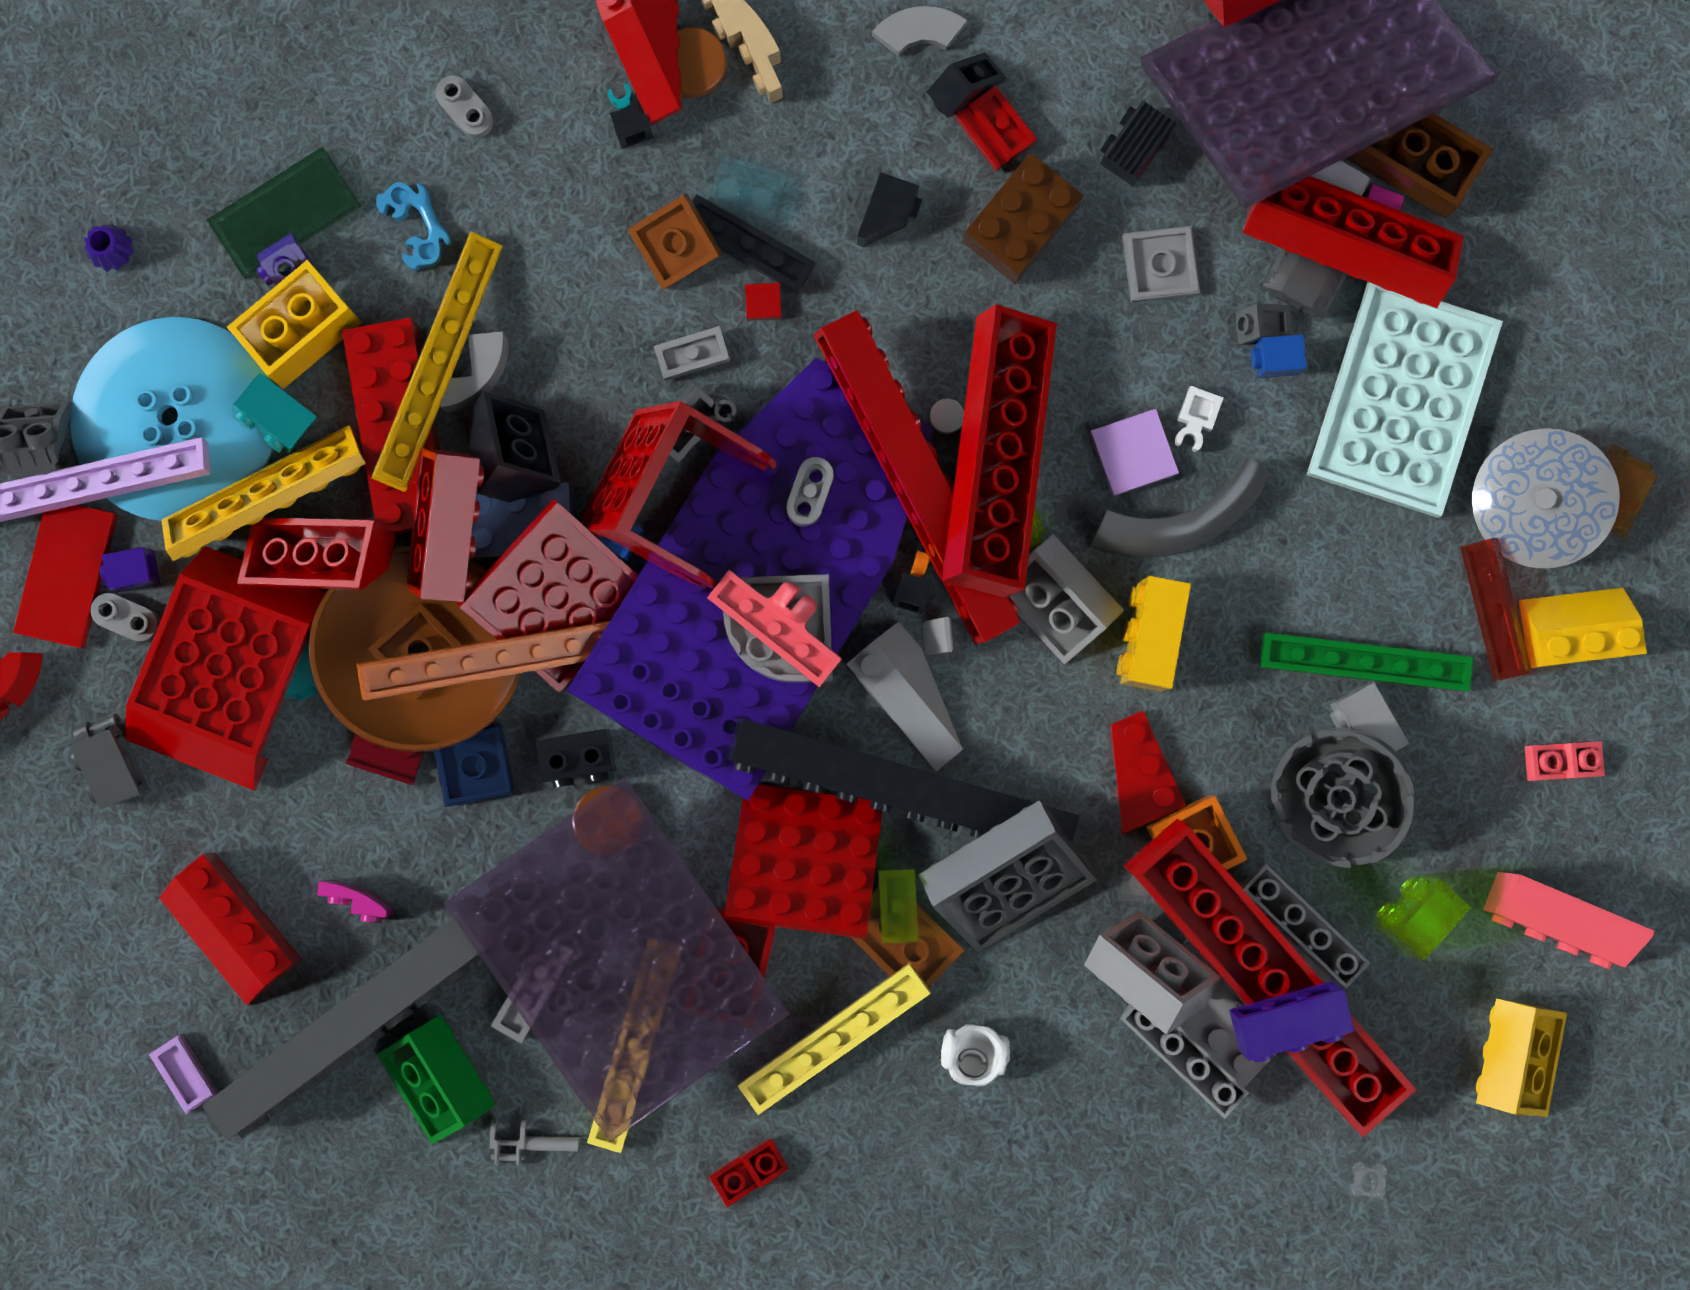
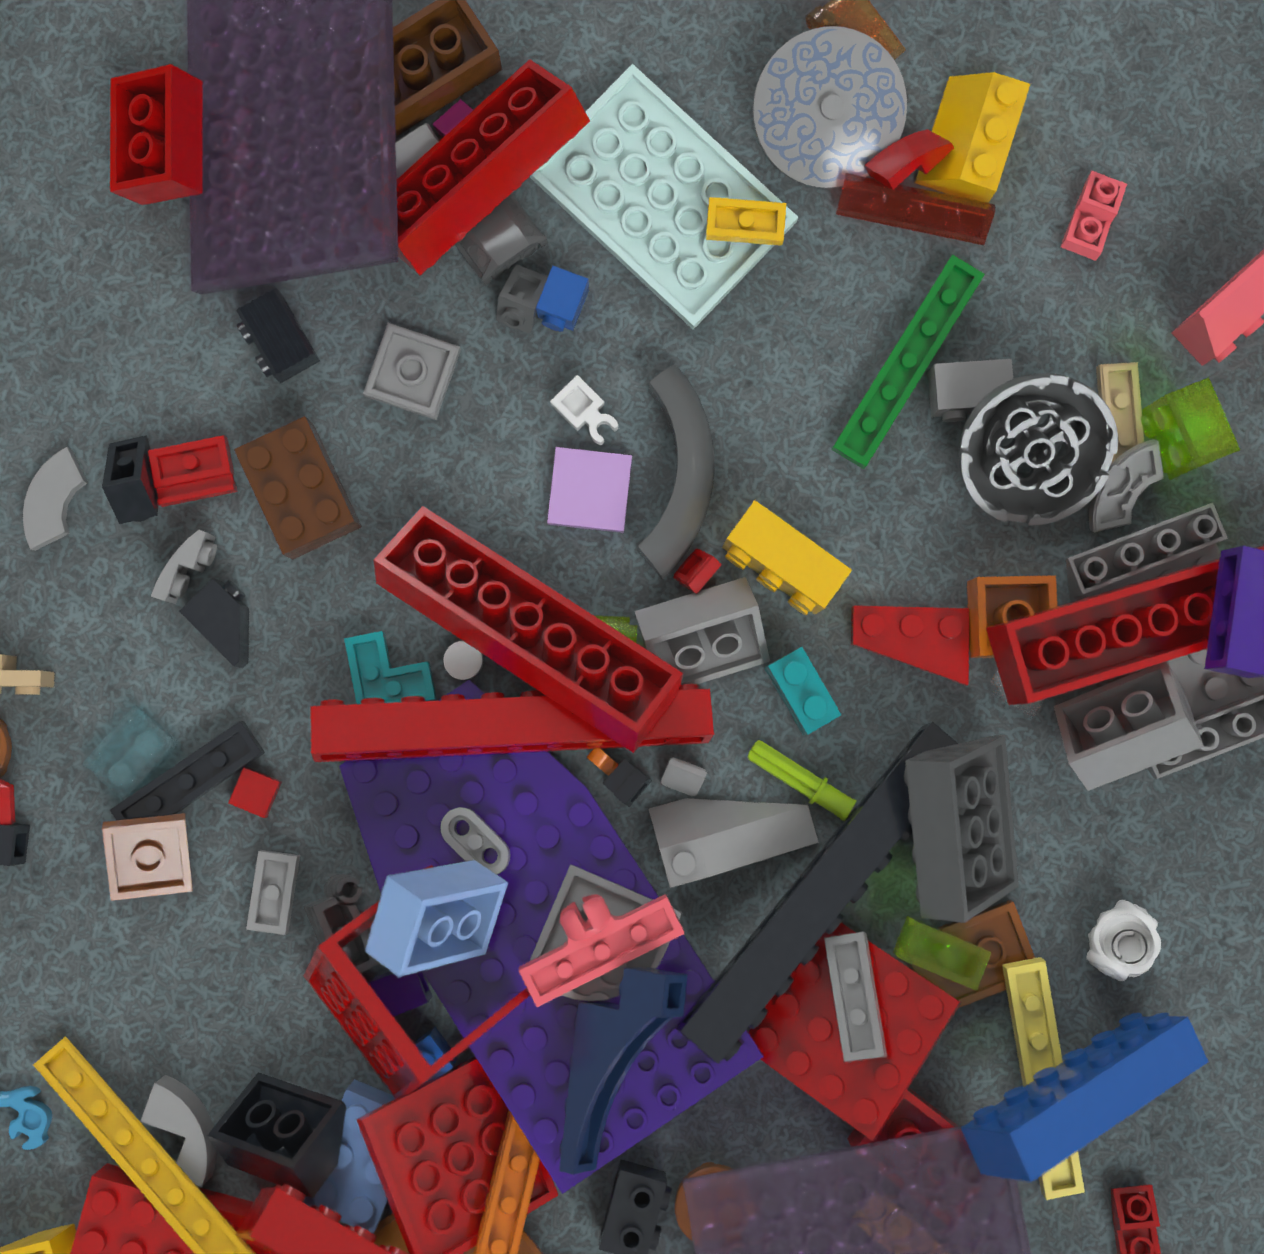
camera: 65 degrees left, 0 degrees up
(667, 494) = (401, 992): none -> dark purple brick
(696, 668) = (604, 1049): none -> dark blue arch
(742, 484) = (435, 916): none -> light blue brick
(830, 850) = (855, 997): none -> light grey plate
(841, 1066) = (1083, 1096): none -> blue brick
(903, 349) = (376, 679): none -> teal plate
(929, 161) = (193, 554): none -> light grey slope
(980, 733) = (801, 780): none -> lime axle
(1053, 699) = (802, 691): none -> teal brick
(1110, 569) = (696, 570): none -> red tile
(1349, 886) = (1127, 480): none -> light grey tile
(1407, 860) = (1121, 392): none -> tan tile
(1416, 473) = (746, 221): none -> yellow plate
(1544, 586) = (916, 151): none -> red slope

